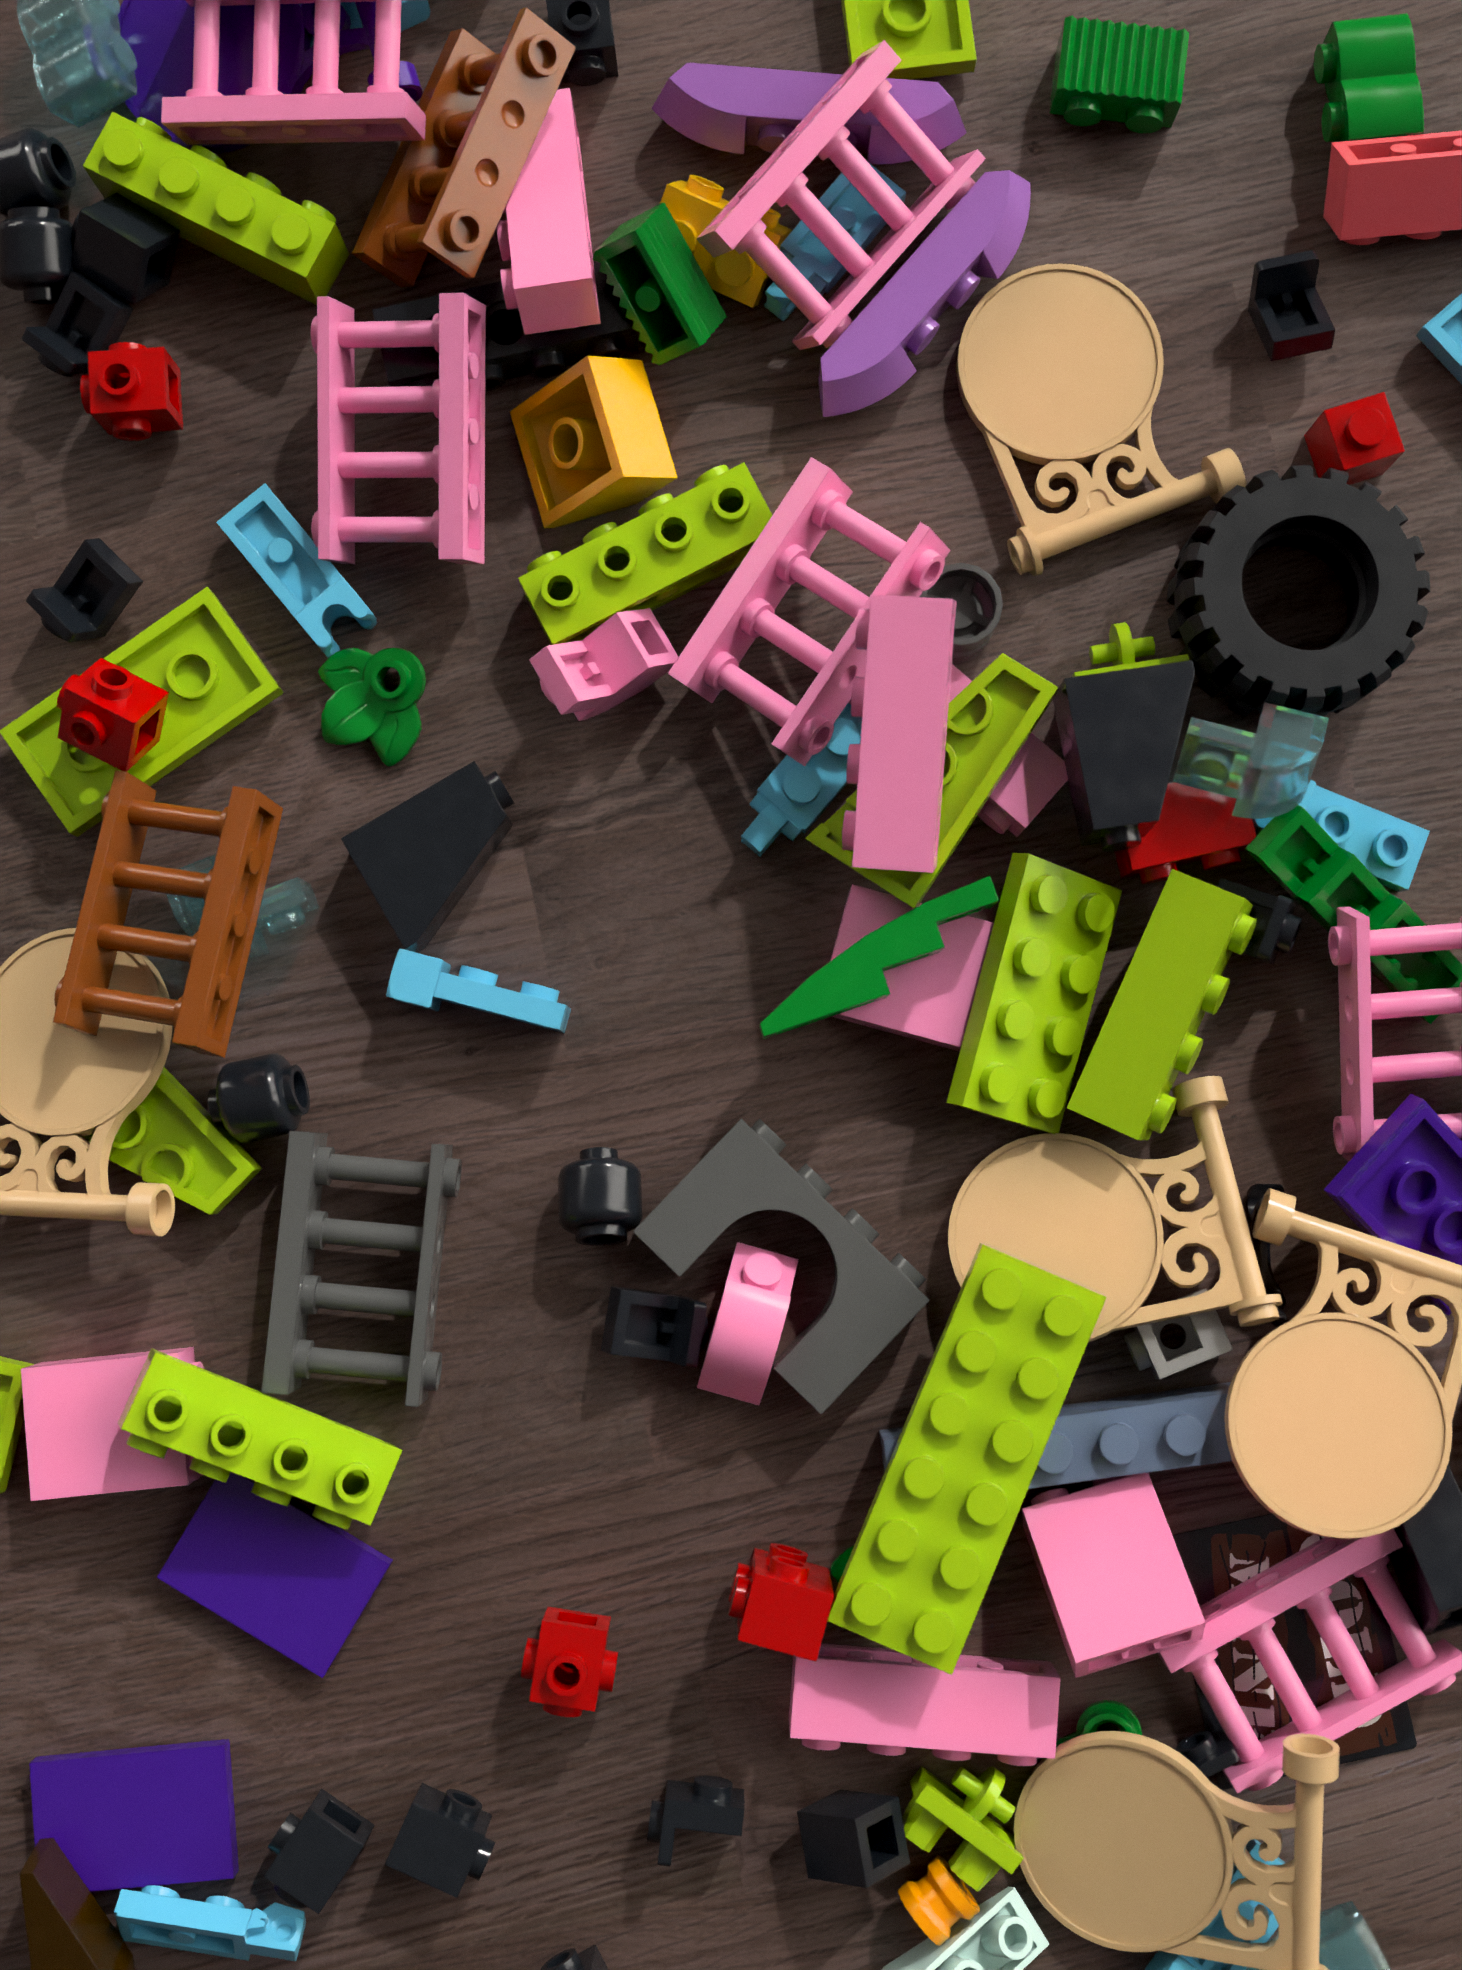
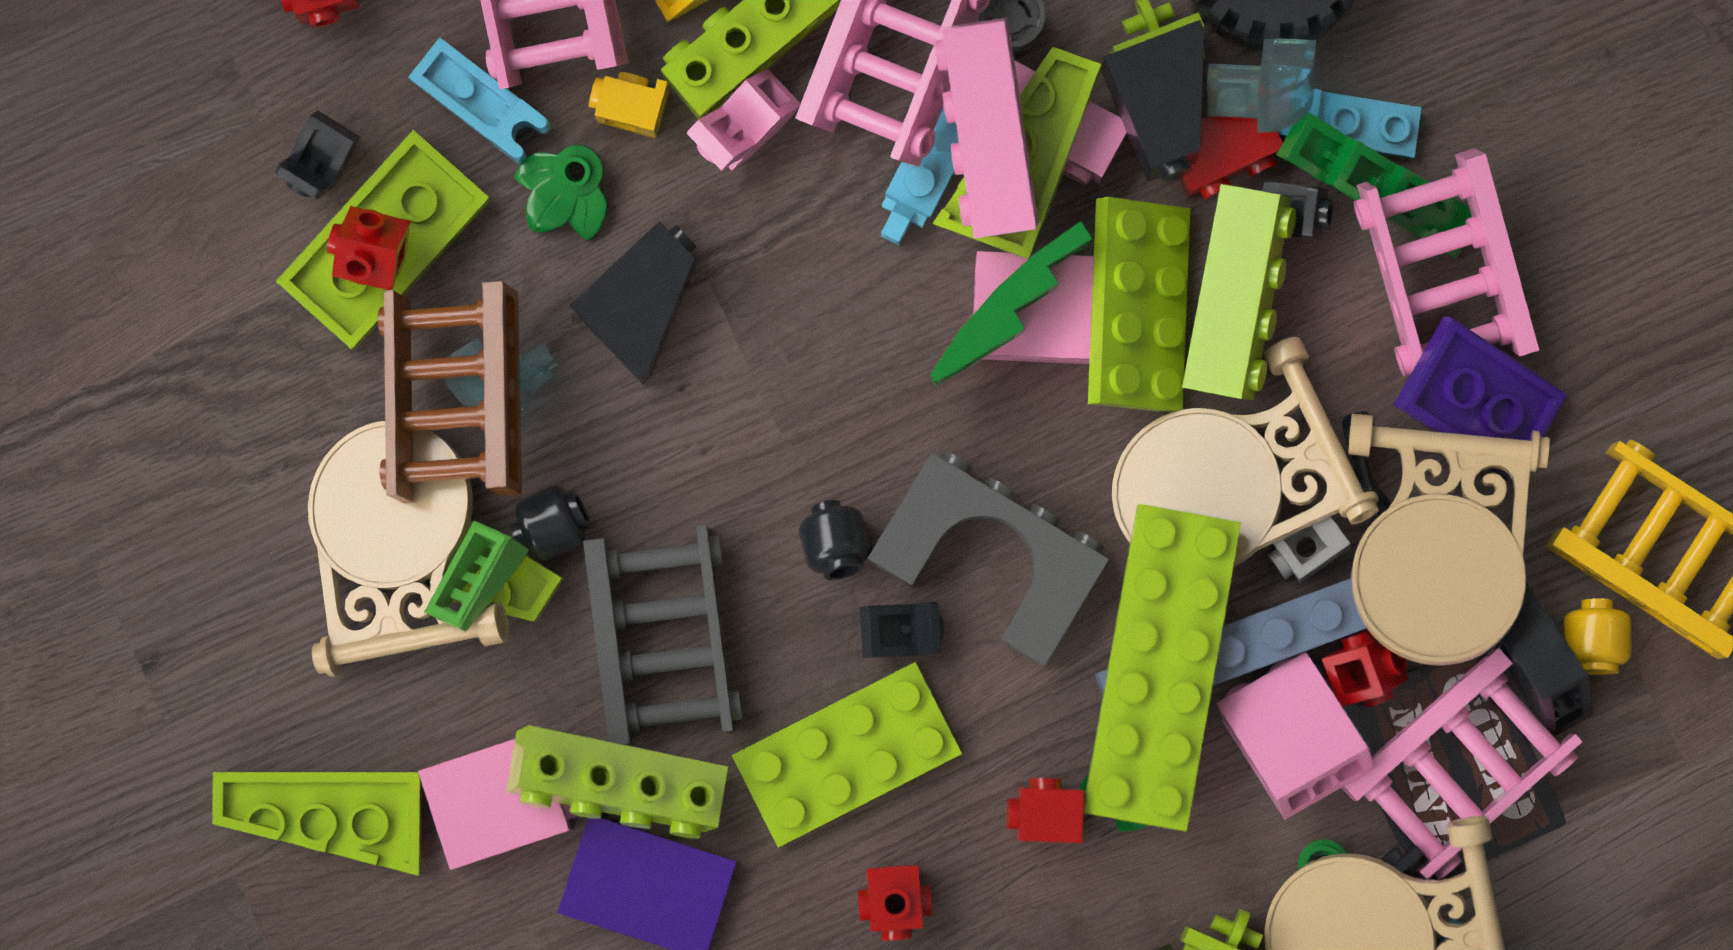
camera: 15 degrees left, 0 degrees up
(158, 1130) = (484, 548): none -> bright green slope
(427, 982) = (658, 402): medium azure plate -> none
(475, 613) = (629, 103): none -> yellow brick
(555, 1462) = (846, 754): none -> lime plate
(748, 1324) = (973, 612): bright pink brick -> none
(903, 1703) = (1174, 870): bright pink brick -> none
(1214, 1511) = (1364, 670): none -> red brick

